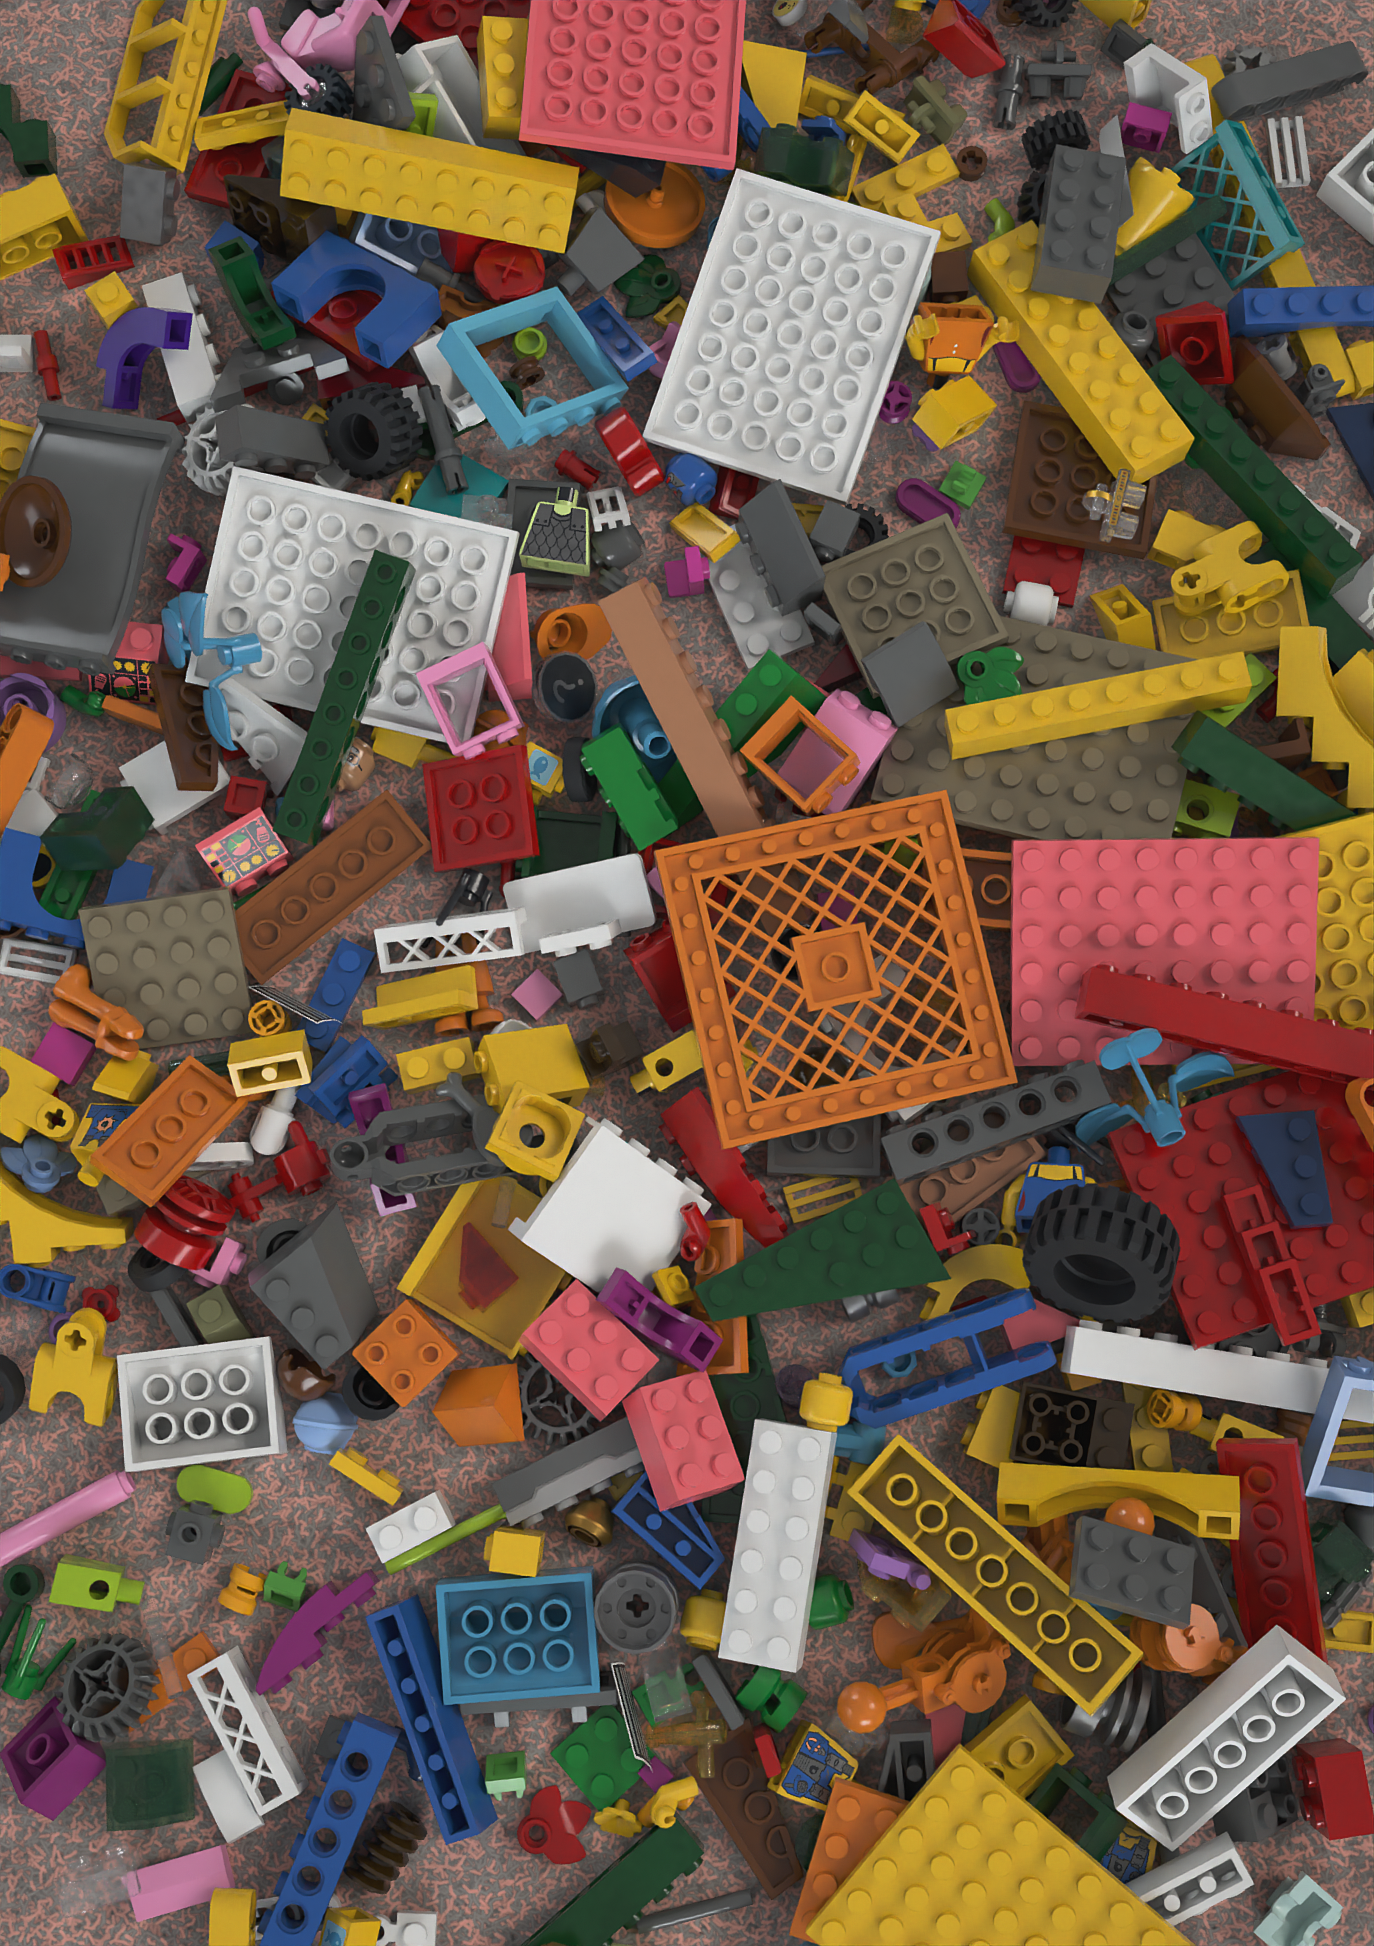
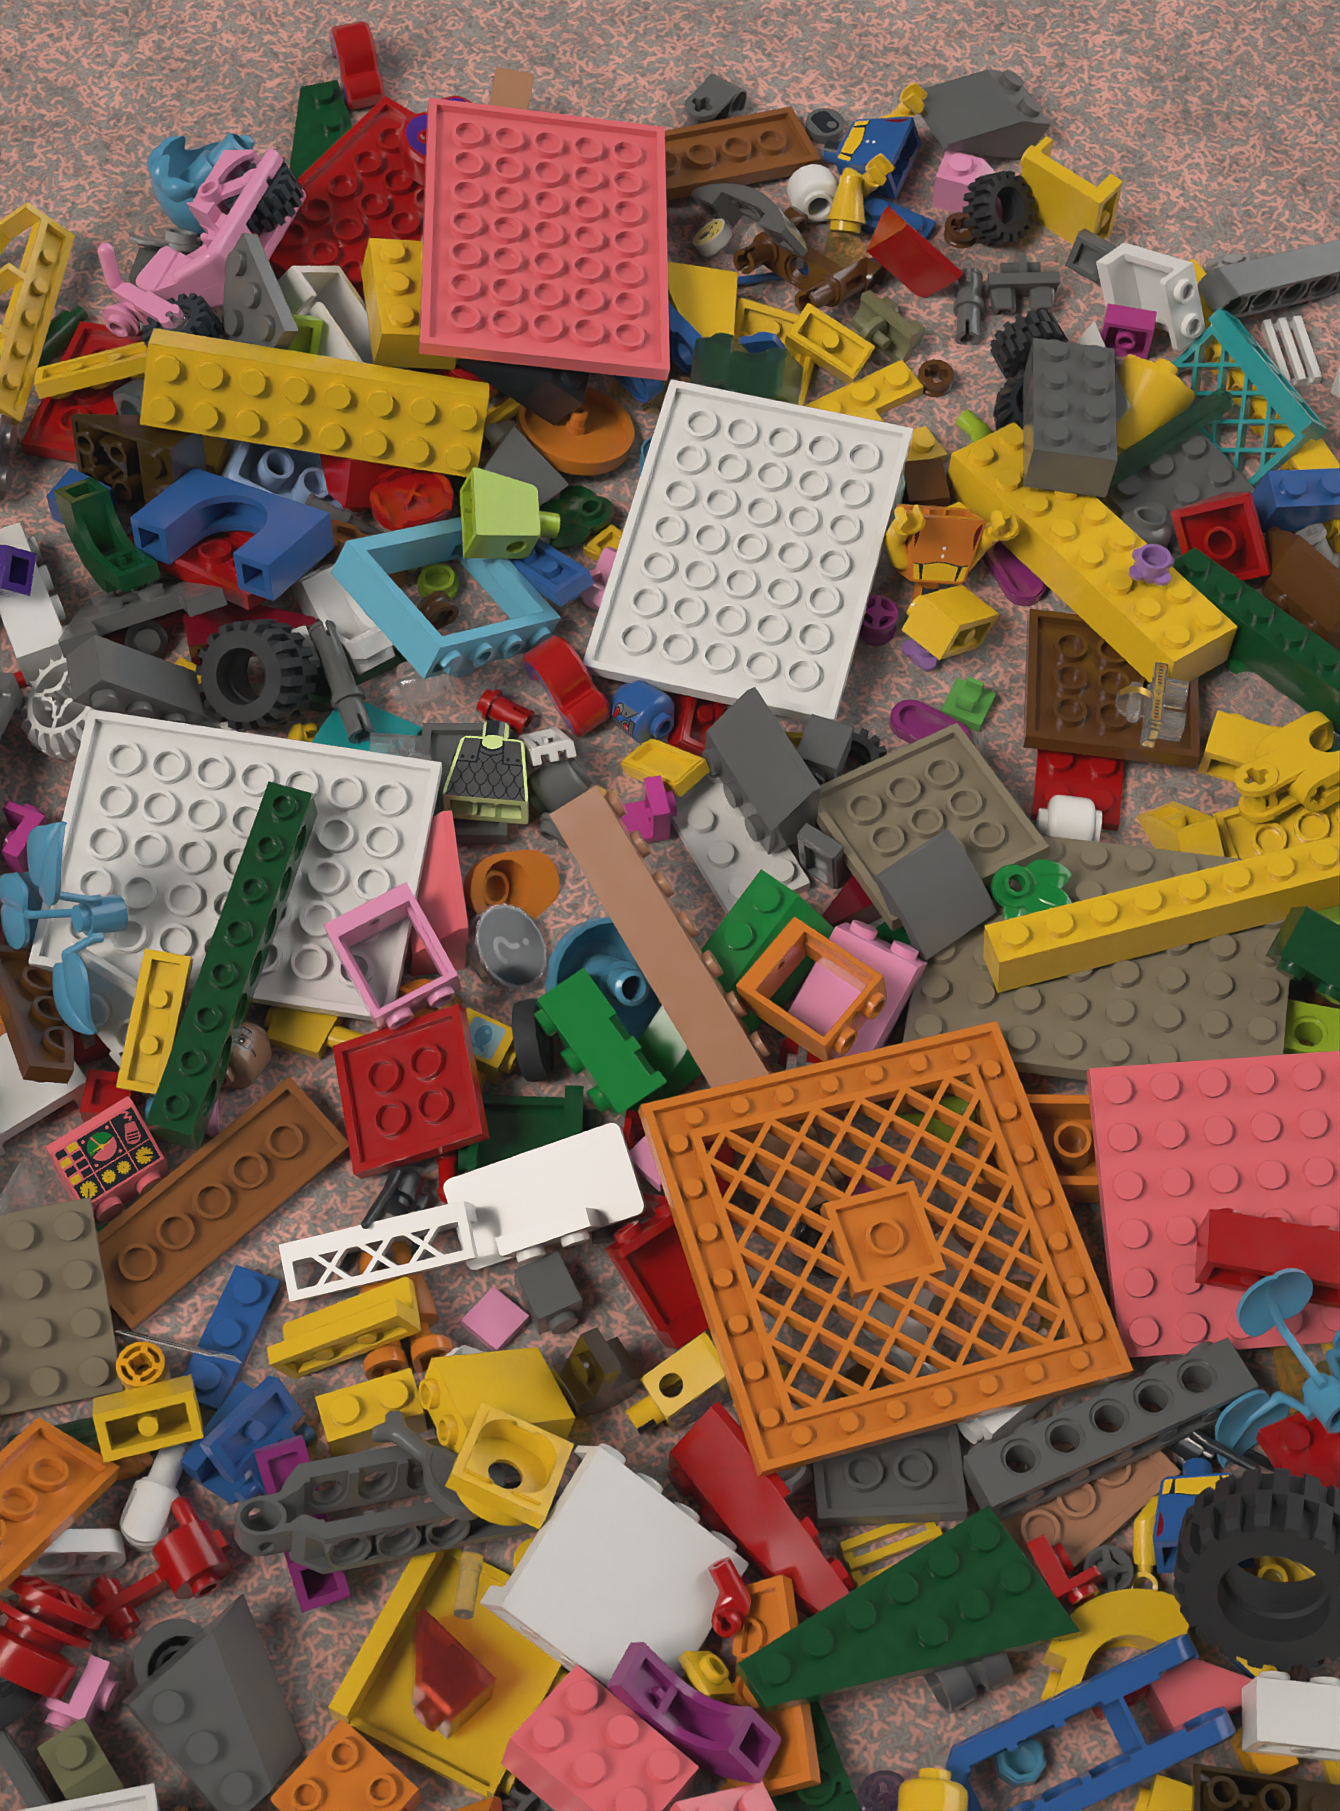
camera: 10 degrees left, 20 degrees down
(281, 743) = (154, 1019): none -> yellow plate
(584, 294) = (502, 517): none -> lime torso
(1129, 369) = (1151, 564): none -> medium lavender plate

